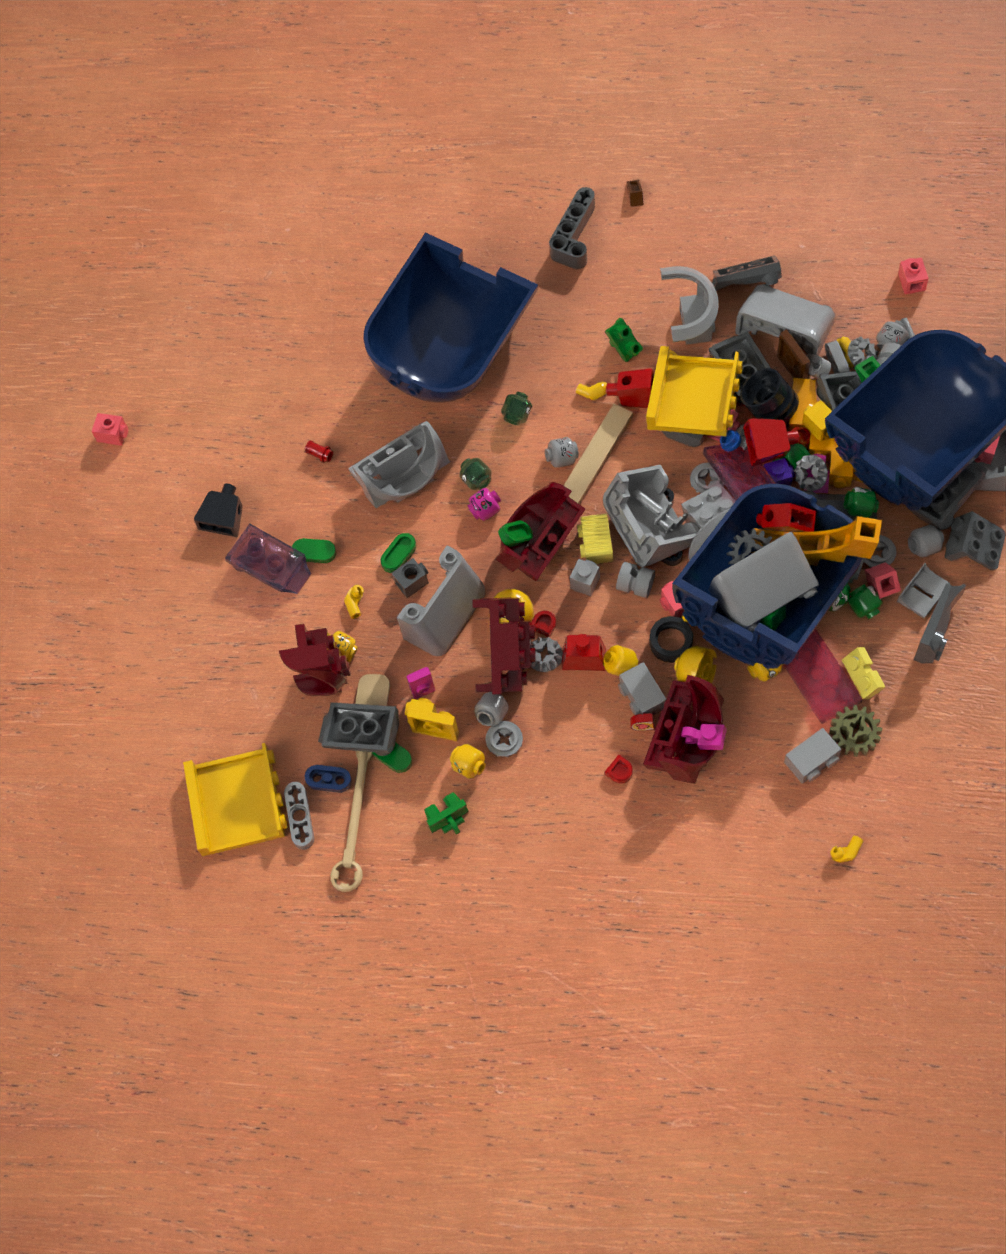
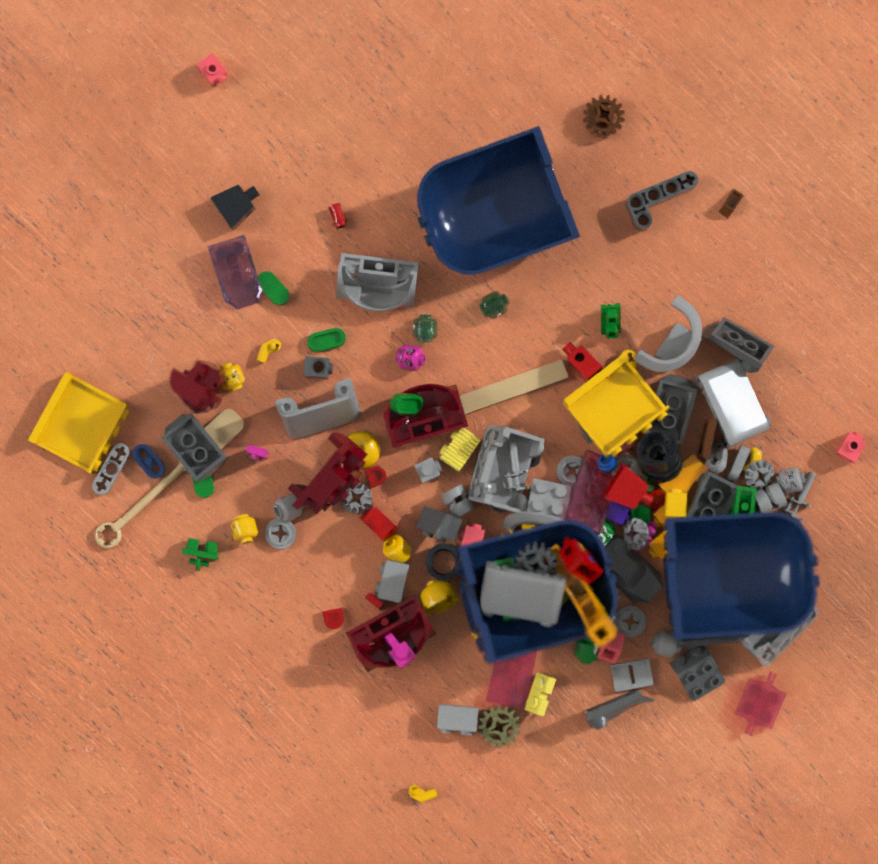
camera: 30 degrees right, 20 degrees up
(426, 721) = (241, 478): yellow plate -> none
(472, 210) = (610, 111): none -> reddish brown gear
(561, 452) = (494, 365): light grey head -> none
(593, 392) = (558, 338): yellow arm -> none
(636, 606) = (439, 524): none -> dark grey hinge
(861, 502) = (647, 583): green head -> none

